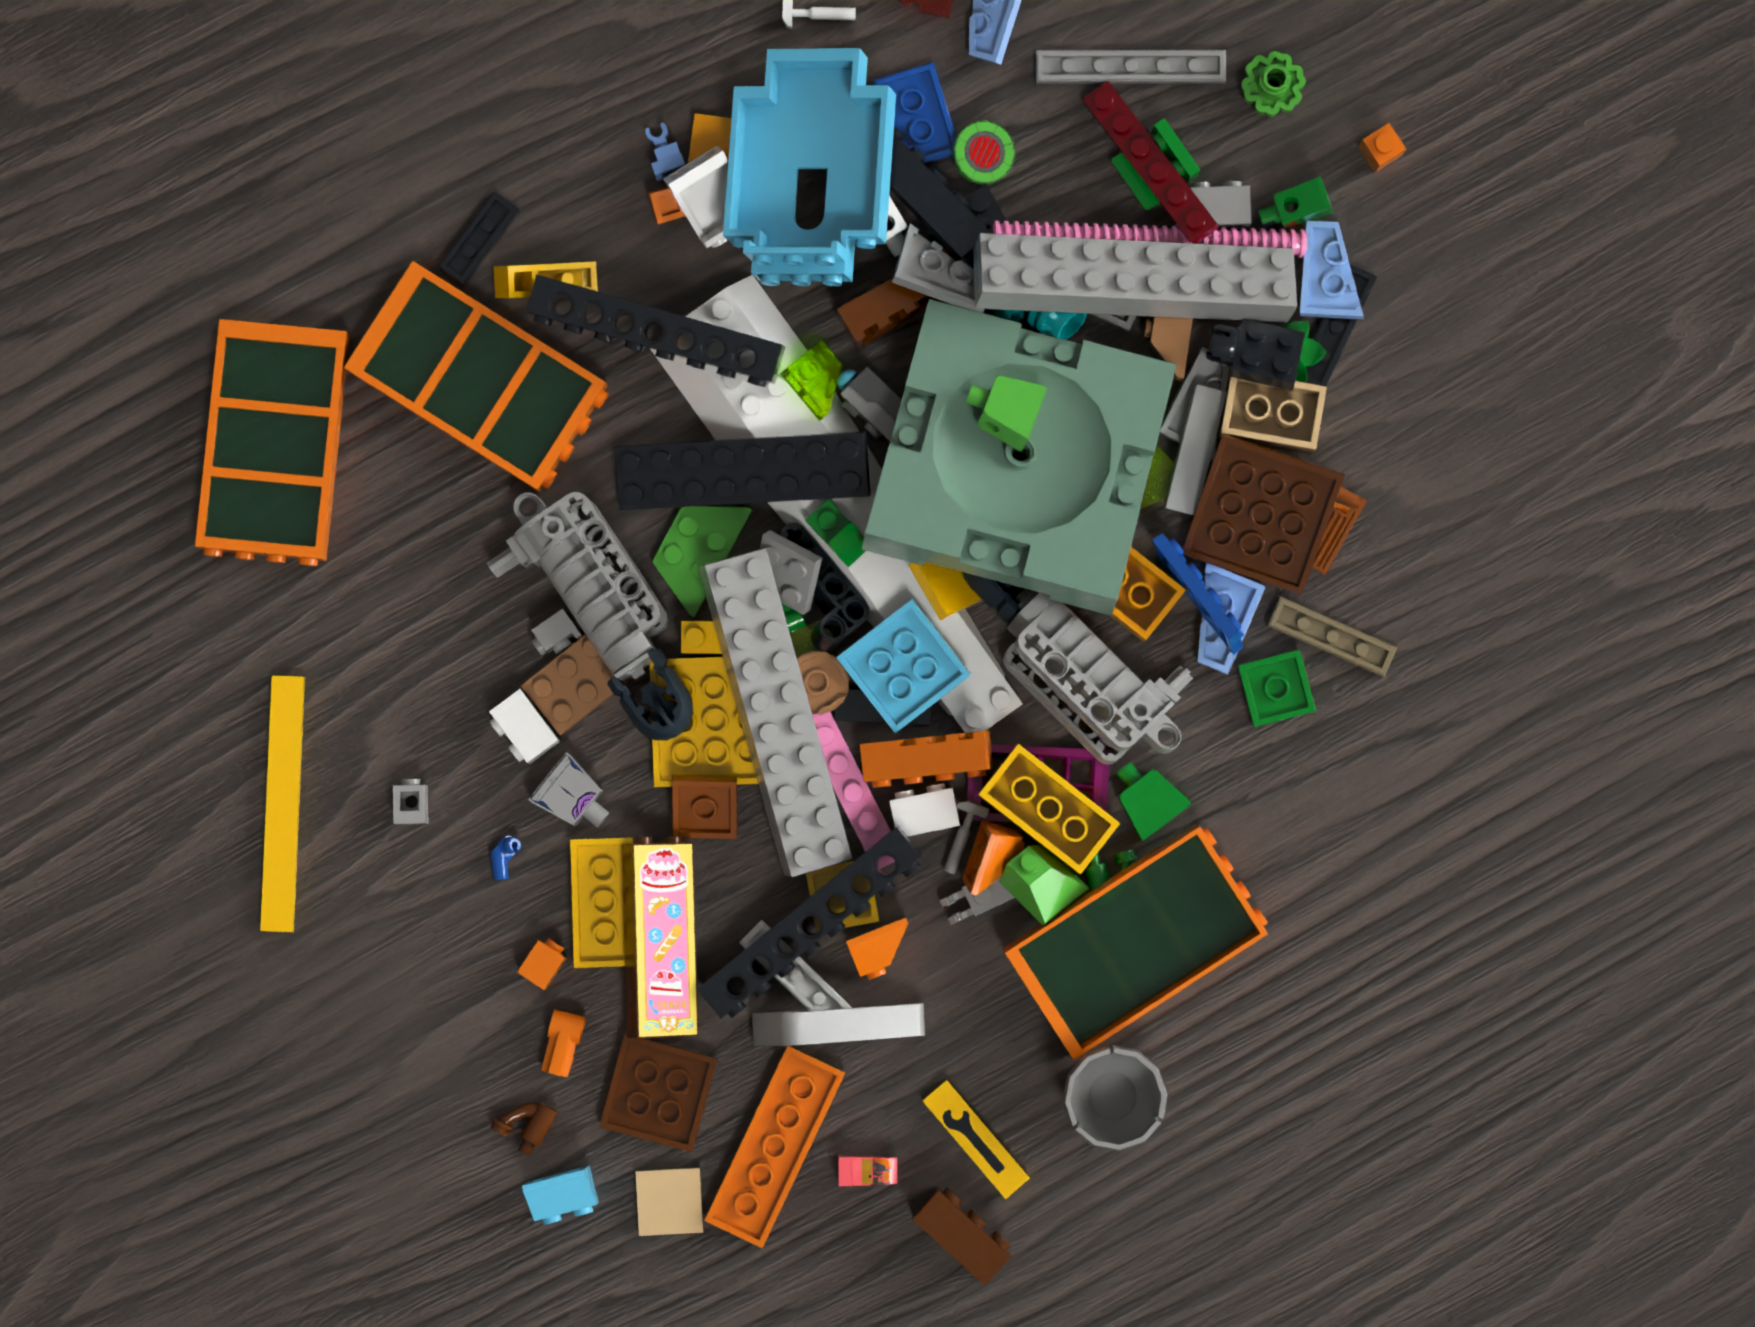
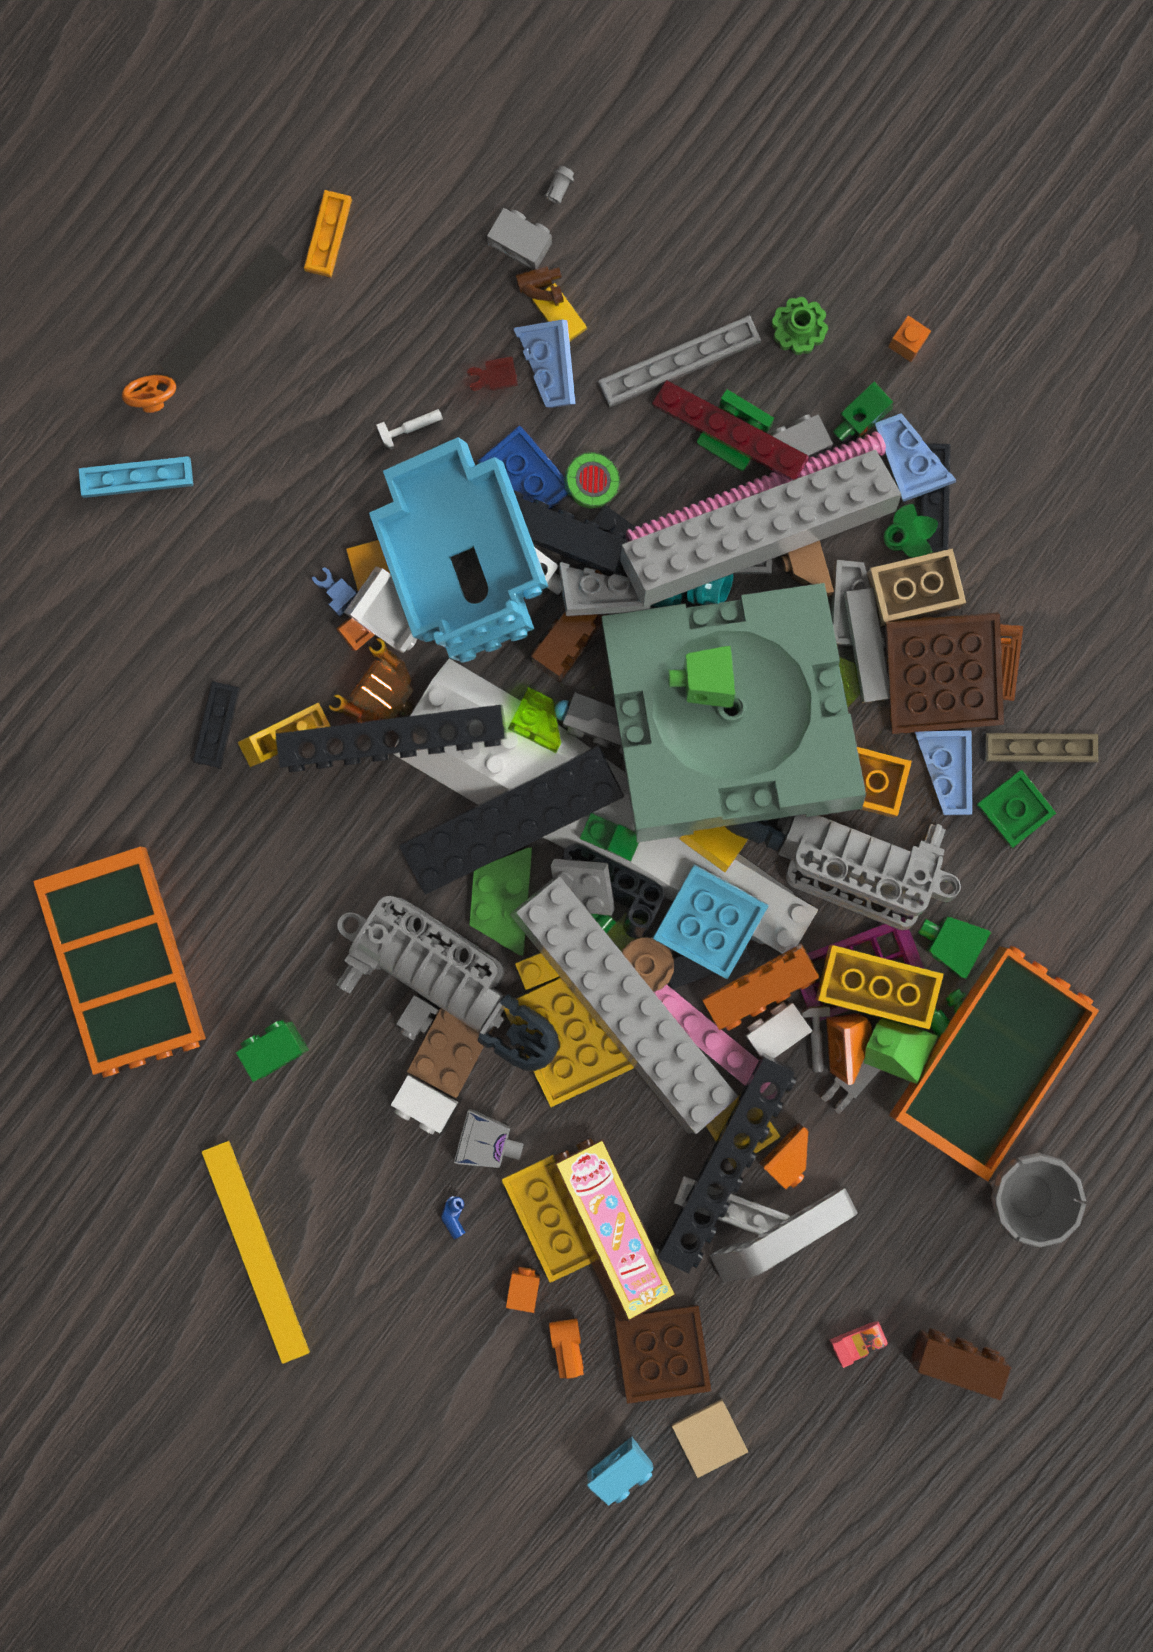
camera: 20 degrees left, 0 degrees up
(390, 602) = (272, 1051): none -> green brick
(401, 812) = (355, 1216): light grey brick -> none
(477, 377) = (263, 837): clear green window -> none
(536, 1128) = (576, 1417): reddish brown plant -> none
(665, 277) = (380, 691): none -> clear orange torso
(704, 806) = (599, 1105): dark orange plate -> none
(774, 1146) = (776, 1357): orange plate -> none
(976, 1139) = (935, 1278): yellow tile -> none
(1205, 600) = (932, 764): blue plate -> none
(1258, 352) = (885, 545): black plate -> none

